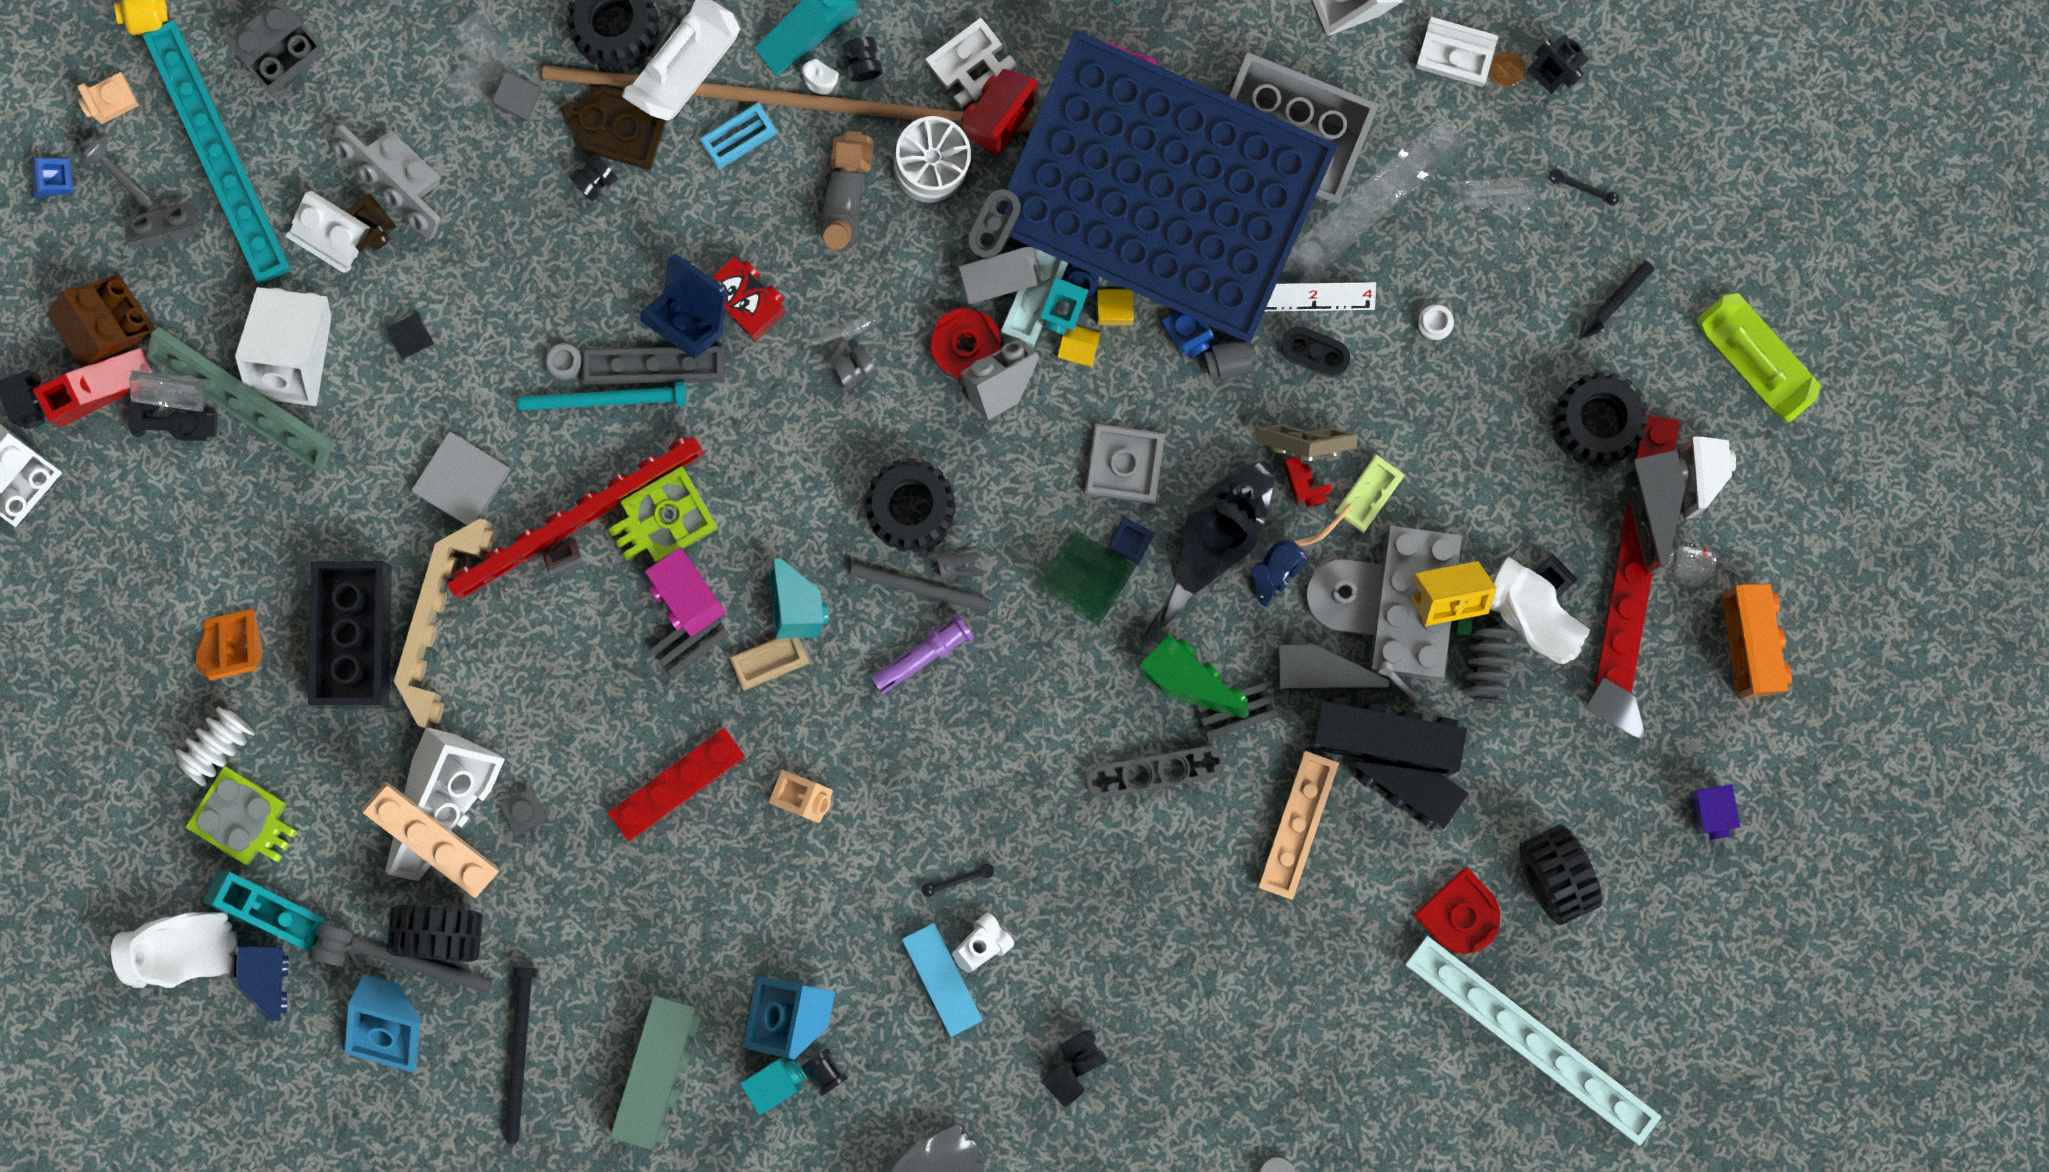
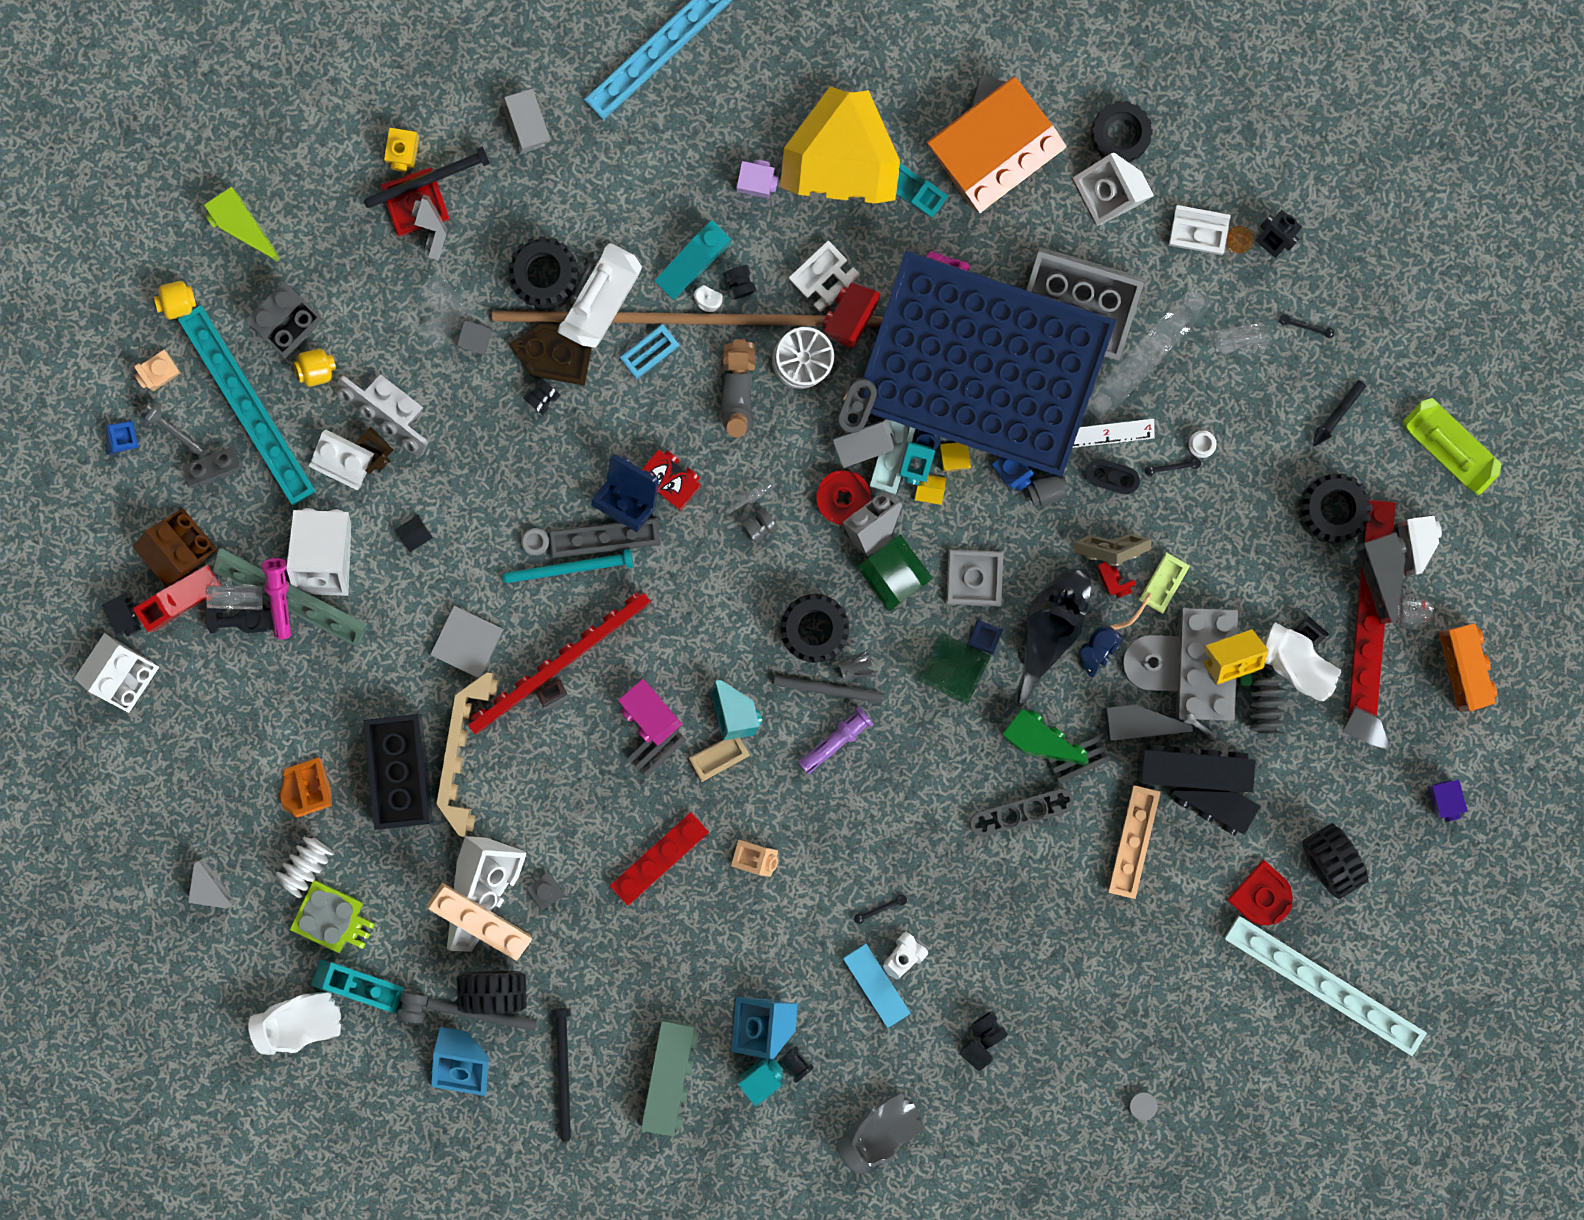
camera: 10 degrees left, 5 degrees up
(85, 761) = (207, 888): none -> light grey slope
(221, 383) = (276, 588): none -> dark pink pin
(259, 978) = (361, 1037): dark blue slope -> none
(307, 112) = (314, 367): none -> yellow head
(664, 517) = (627, 656): lime piece -> none
(1021, 445) = (894, 572): none -> dark green slope
(1423, 347) = (1195, 463): none -> black hinge

